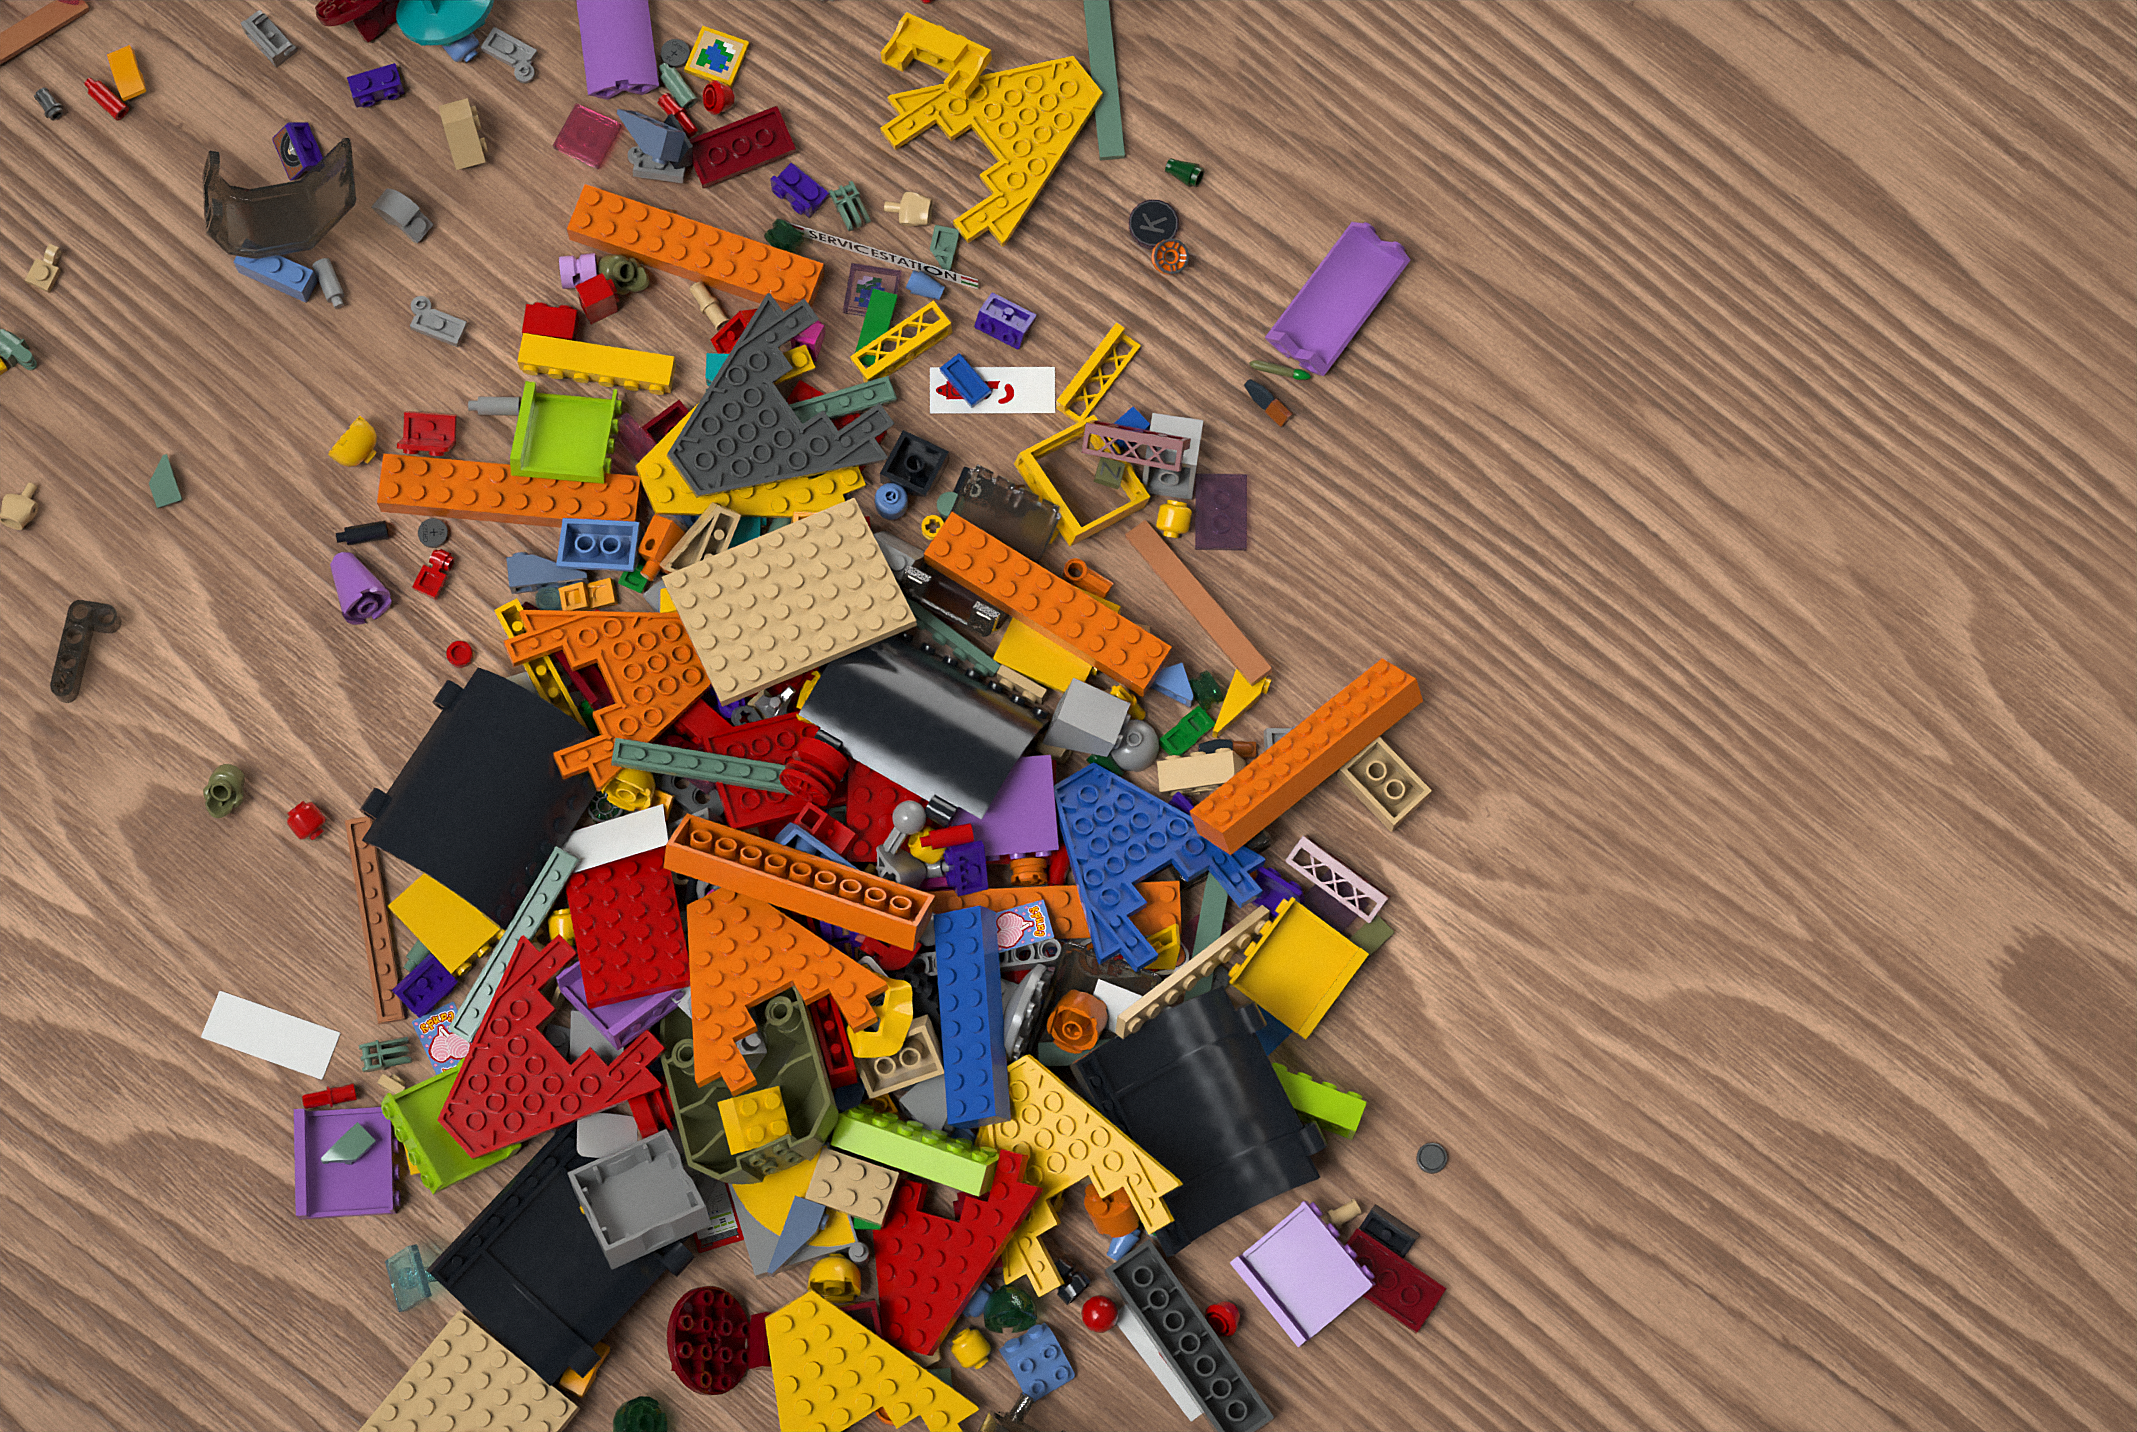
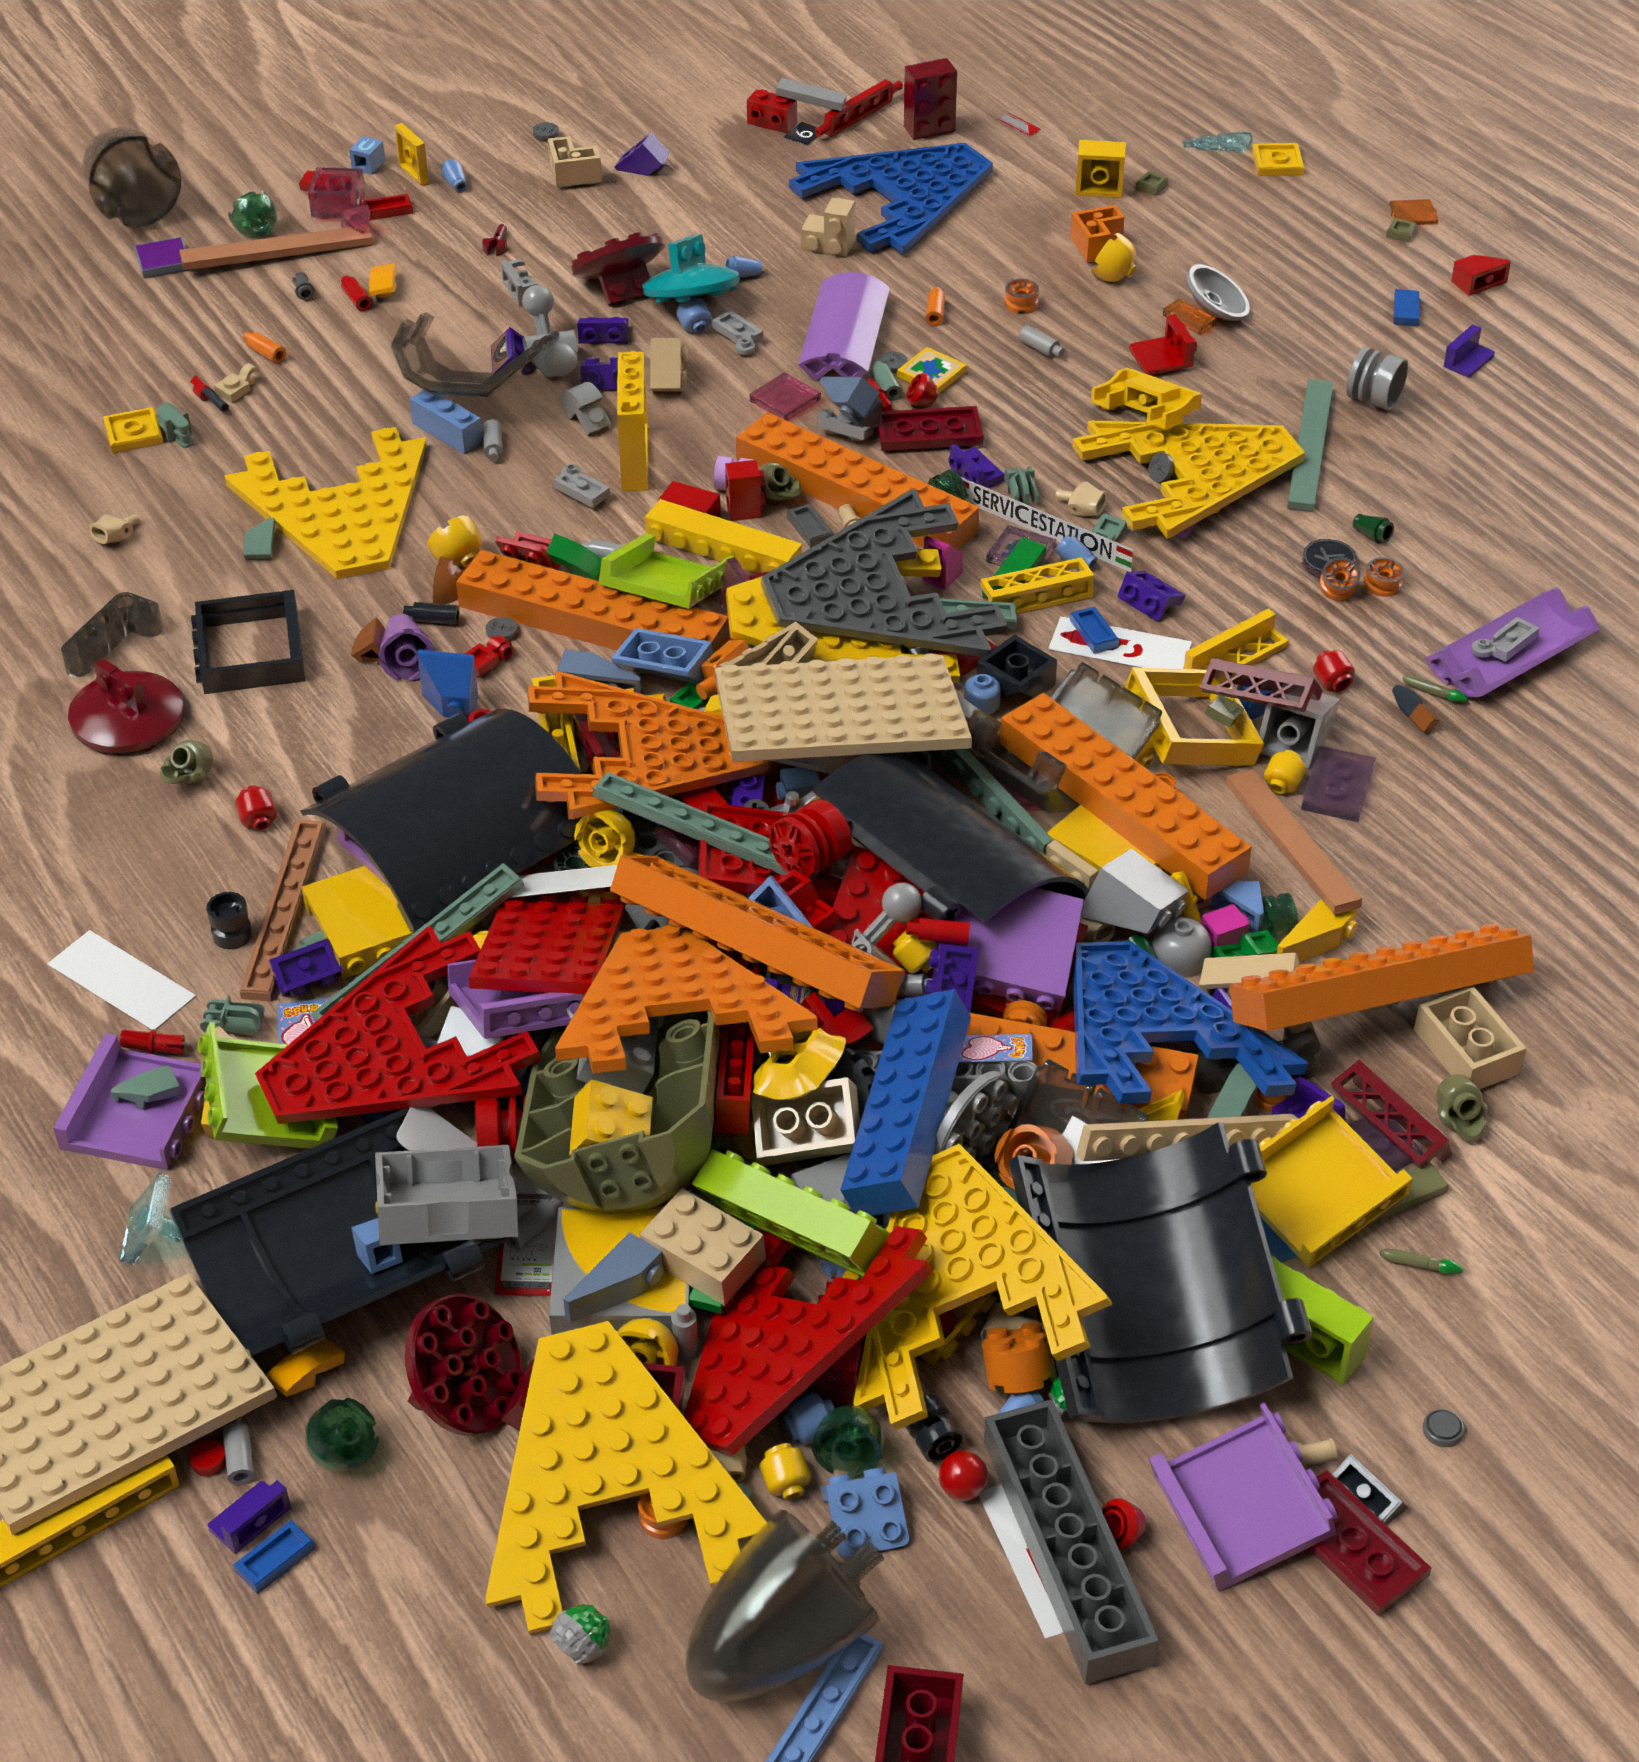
camera: 20 degrees right, 30 degrees down
(20, 290) = (205, 392): none -> piece
(49, 207) = (265, 346): none -> orange cylinder
(138, 738) = (125, 710): none -> dark red bracket
(190, 581) = (241, 610): none -> black window
(232, 430) = (344, 526): none -> yellow wing
(321, 588) = (368, 642): none -> dark orange brick
(333, 127) = (561, 357): none -> light grey piece
(339, 955) = (229, 920): none -> black wheel
(363, 490) = (445, 581): none -> dark orange brick
(402, 153) = (600, 374): none -> dark purple bracket
(419, 630) = (448, 681): none -> blue slope
(465, 245) = (632, 421): none -> yellow window
(469, 429) = (575, 556): none -> green slope
(591, 1249) = (373, 1255): none -> medium blue brick
(668, 312) = (809, 524): none -> dark grey tile
(972, 143) = (1161, 467): none -> dark grey piece
(1164, 715) = (1225, 925): none -> dark pink brick
(1189, 377) = (1334, 670): none -> red head
(1202, 229) = (1384, 576): none -> orange wheel
(1332, 298) = (1507, 640): none -> light grey hinge
(1387, 1010) = (1444, 1266): none -> olive piece
(1391, 854) = (1462, 1107): none -> olive head

